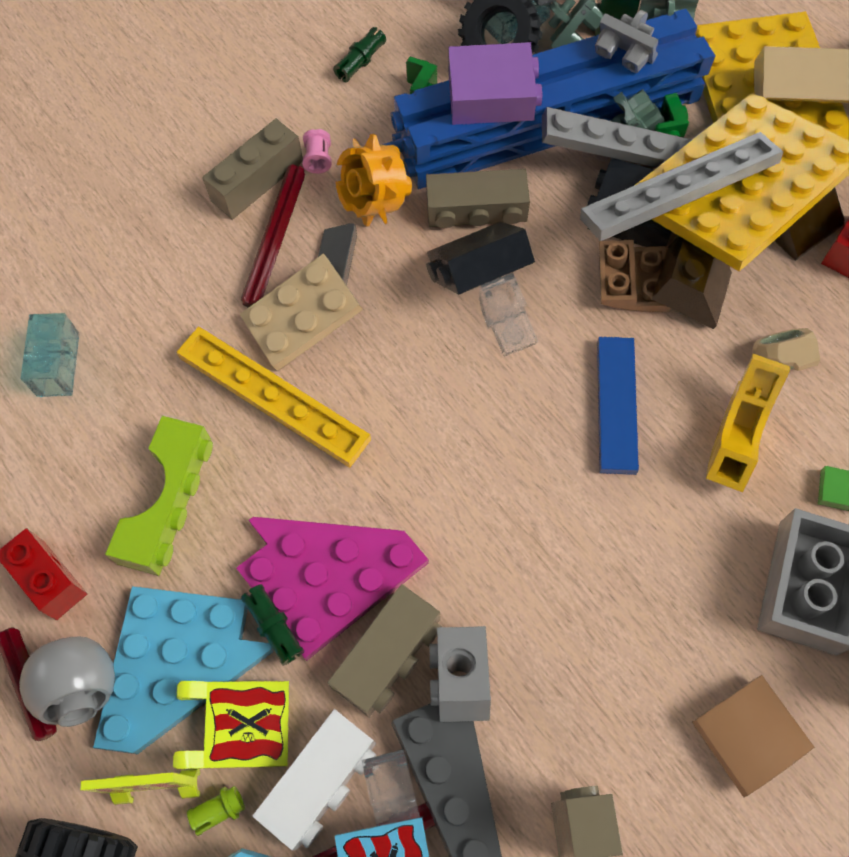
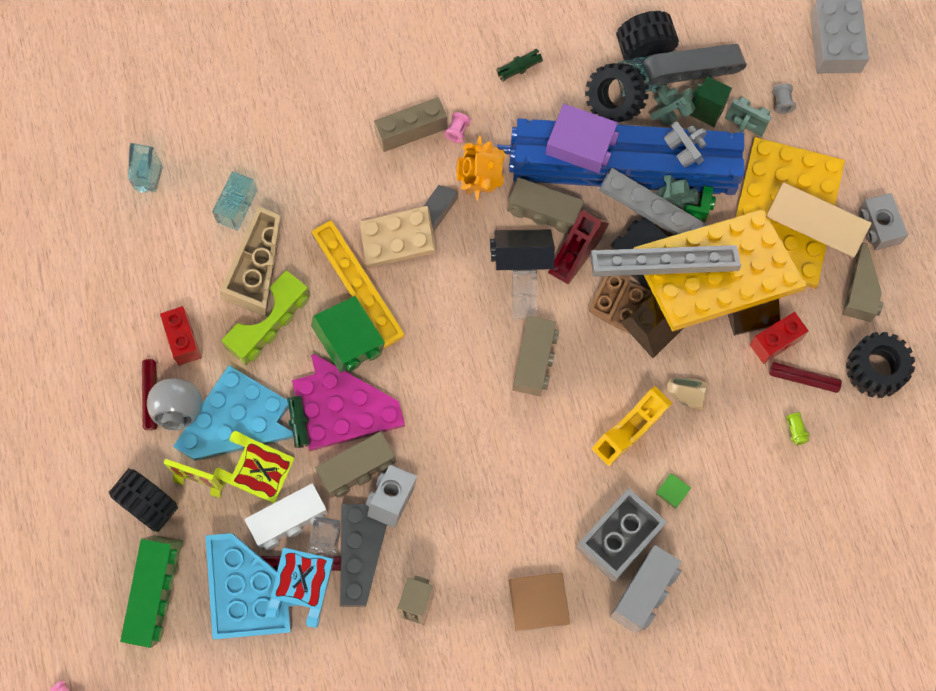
camera: 20 degrees right, 5 degrees up
(111, 431) = (252, 268): none -> tan wedge
(216, 810) = (225, 509): lime pin -> none
(273, 235) = (404, 175): dark red axle -> none
(290, 468) = (348, 334): none -> green brick
(420, 73) = (552, 107): green bracket -> none
(546, 227) = (578, 245): none -> dark red slope
(563, 389) = (535, 356): none -> dark tan brick
(617, 406) = (565, 380): blue tile -> none

